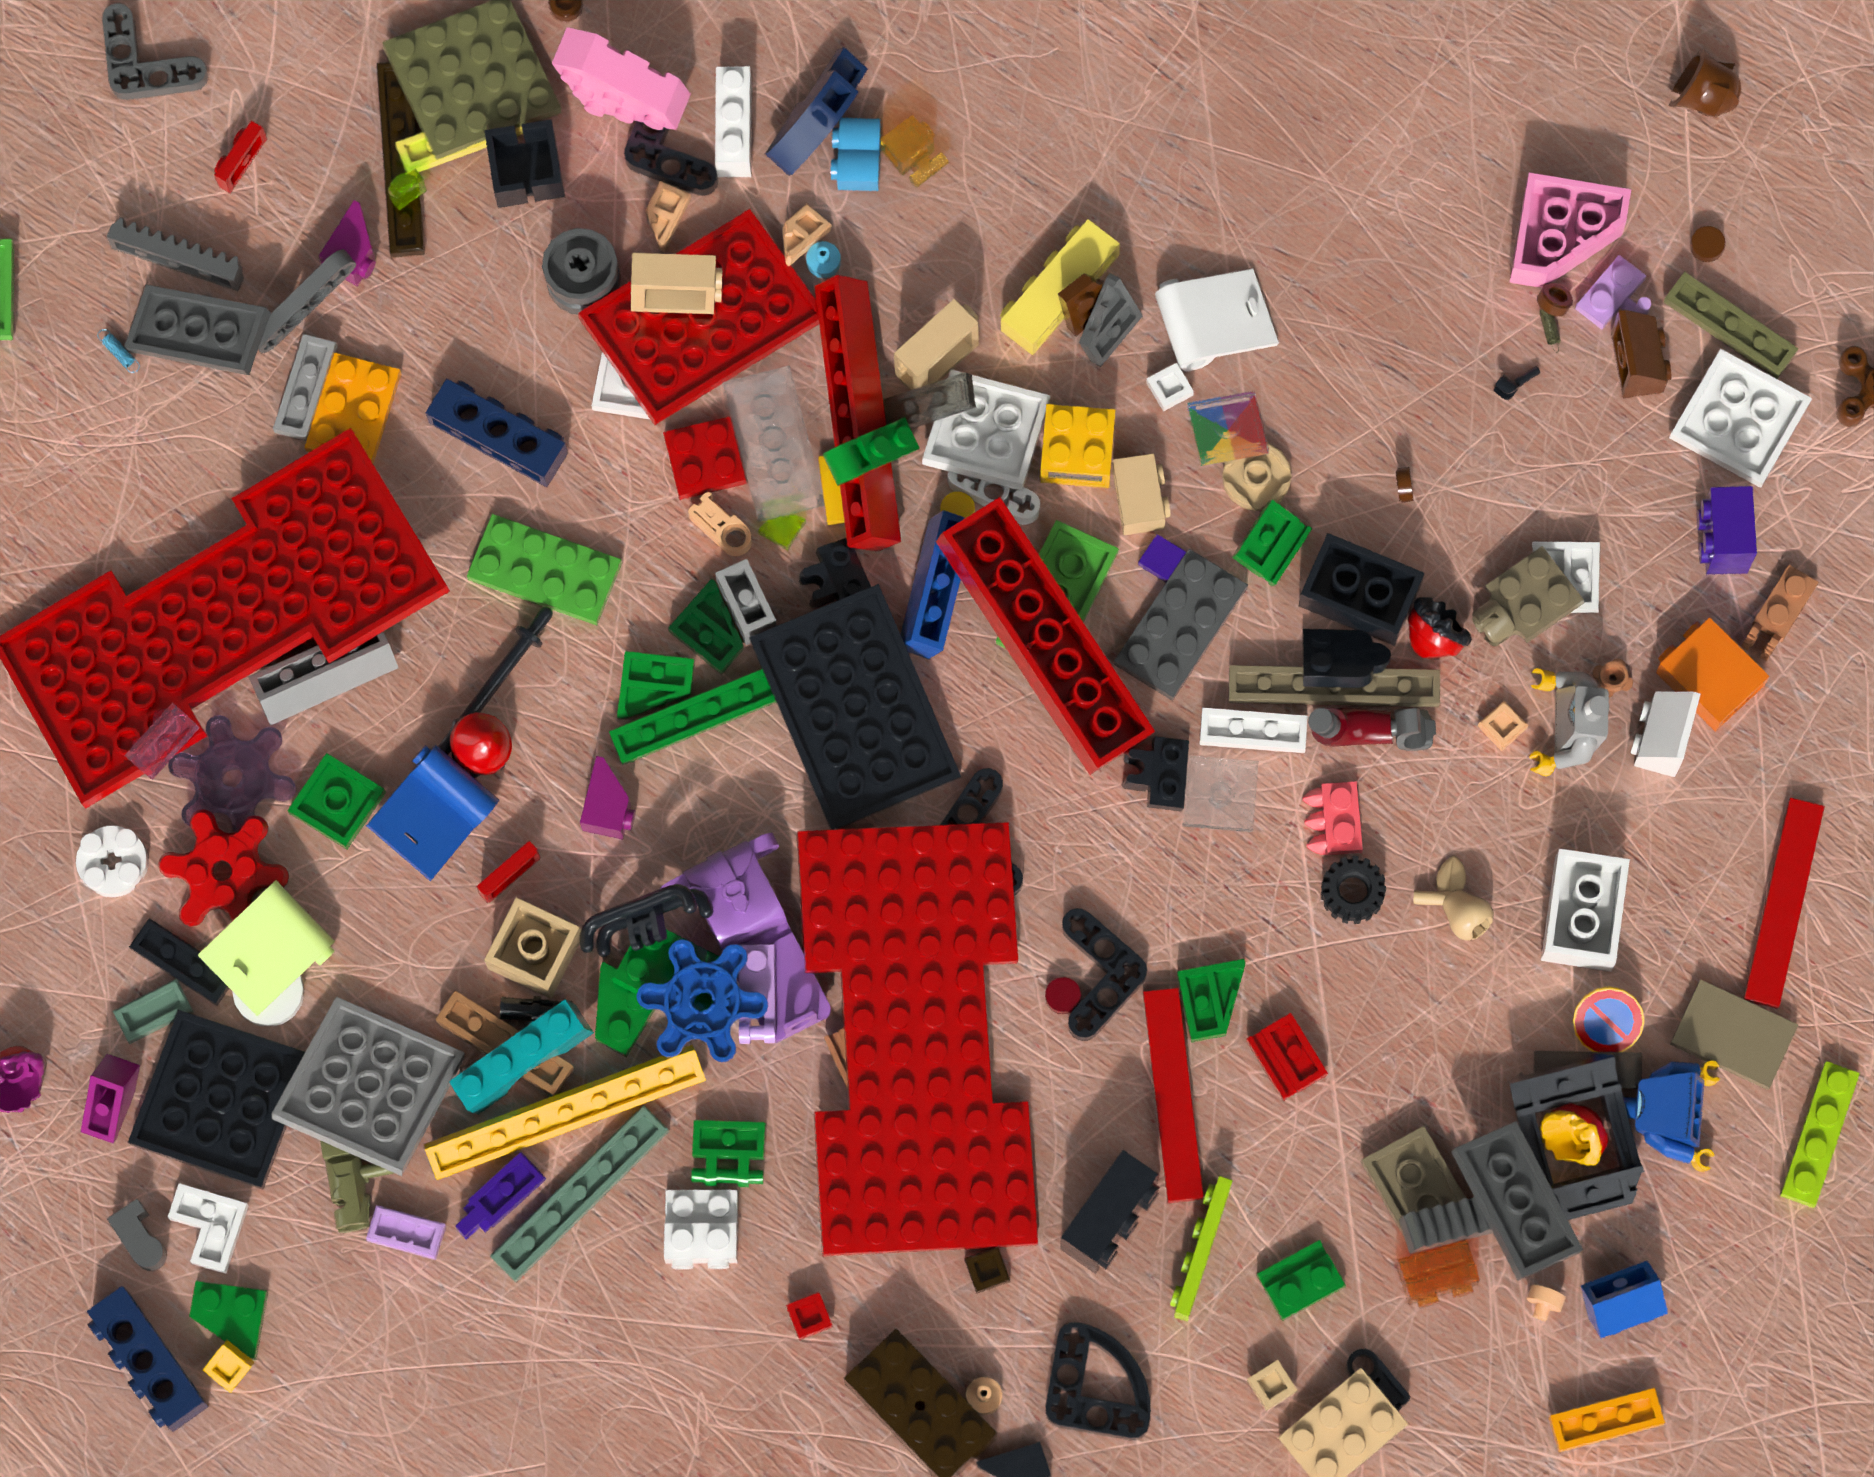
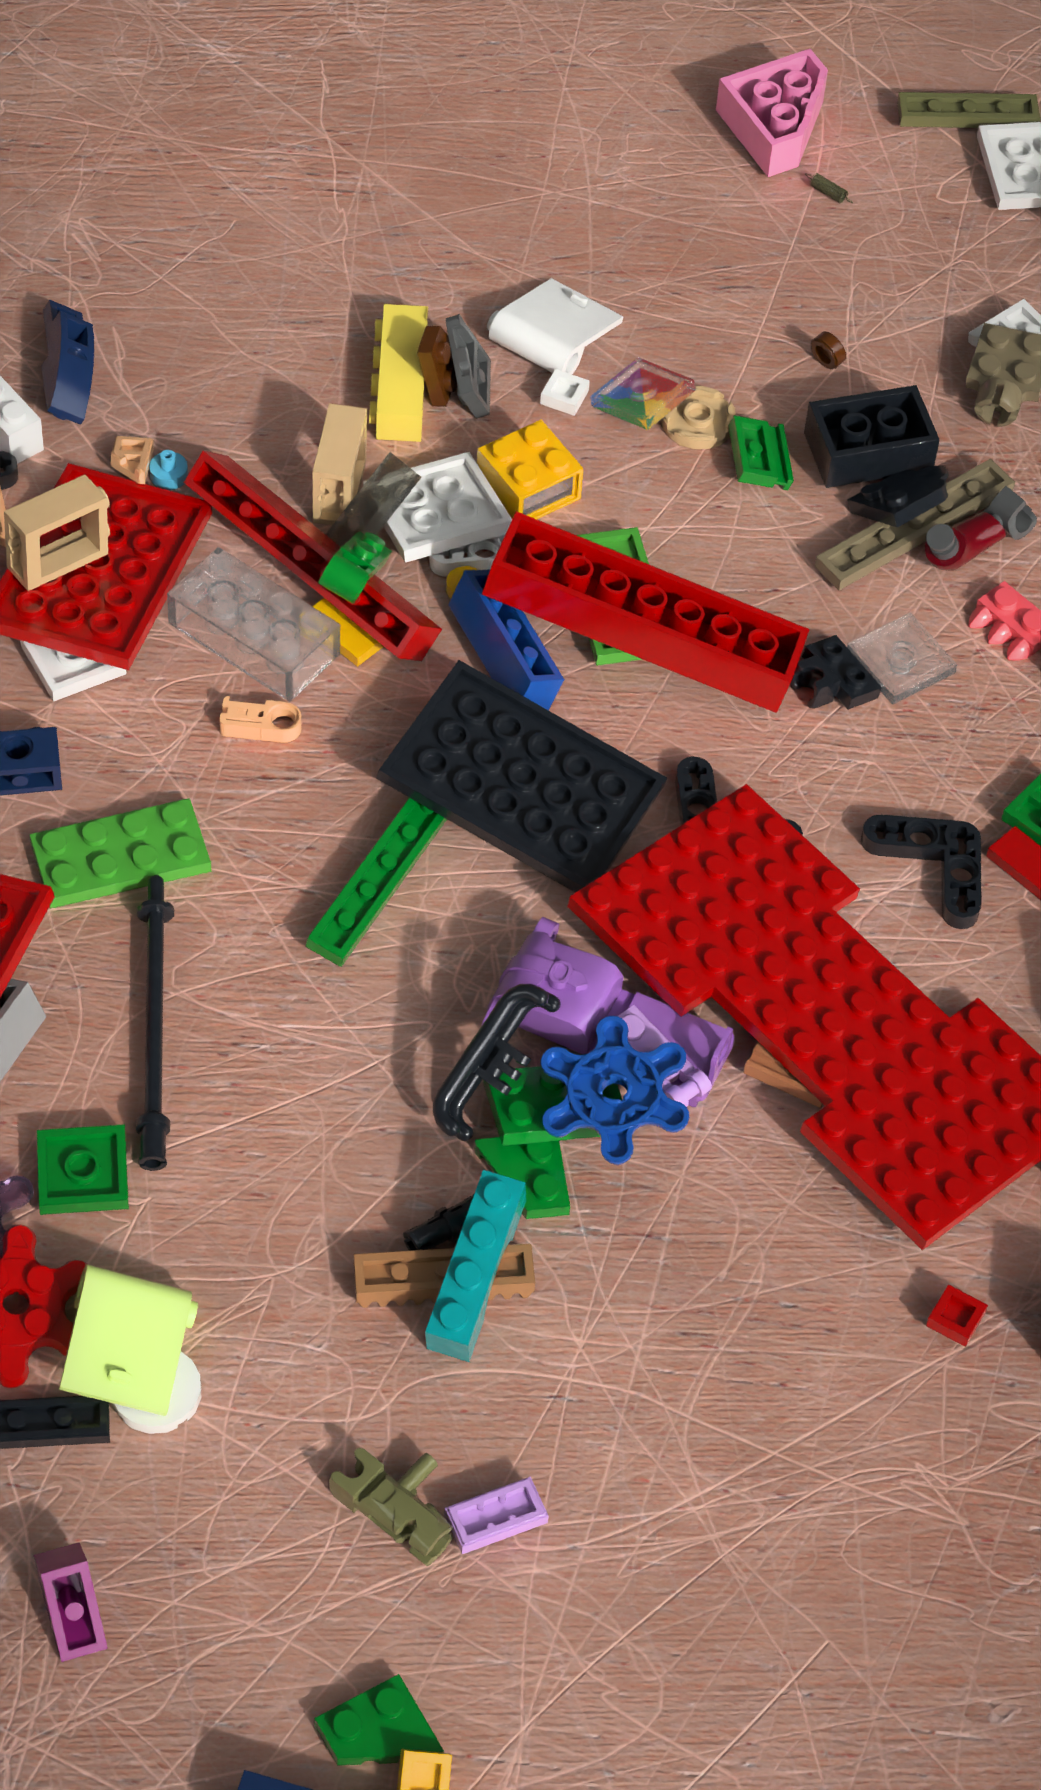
camera: 45 degrees left, 20 degrees down
(139, 1243) = (215, 1720): dark grey leg -> none
(152, 1011) = (46, 1490): sand green tile -> none
(216, 1100) = (192, 1523): black plate -> none
(219, 1222) = (286, 1639): white plate -> none
(368, 1086) = (343, 1398): light grey plate -> none
(435, 808) = (192, 1108): blue door -> none
(480, 743) = (189, 1024): red hair -> none
(500, 1196) = (561, 1415): dark purple hinge -> none
(508, 872) = (313, 1120): red tile -> none
(533, 948) = (400, 1164): tan brick -> none
(563, 1112) = (555, 1298): yellow plate -> none
(579, 1193) = (635, 1365): sand green tile -> none
(606, 805) = (357, 1001): magenta slope -> none
(653, 682) = (310, 877): green wing -> none
(701, 1228) = (782, 1311): white plate -> none
(704, 458) = (195, 677): red plate -> none
(708, 629) = (326, 805): dark green wing -> none
(728, 1141) = (740, 1213): green plate -> none
(745, 600) = (342, 754): light grey brick -> none
(782, 530) = (320, 692): clear neon green tile -> none
(836, 575) = (399, 694): black plate -> none
(858, 154) = (131, 374): dark azure brick -> none
(909, 147) = (173, 345): clear yellow brick -> none
(1062, 995) = (921, 898): dark red tile -> none
(1139, 494) = (617, 480): tan brick -> none
(1161, 558) = (678, 519): dark purple tile -> none
(1180, 624) = (742, 550): dark grey plate -> none
(1253, 730) = (881, 595): white plate -> none
(1435, 630) = (962, 431): hair -> none
(1507, 388) = (839, 243): black hand -> none
(1555, 299) = (817, 164): reddish brown tile -> none
(1613, 293) = (855, 141): lavender plate -> none
(1639, 354) = (920, 163): reddish brown slope -> none
(1707, 244) = (894, 72): reddish brown tile -> none

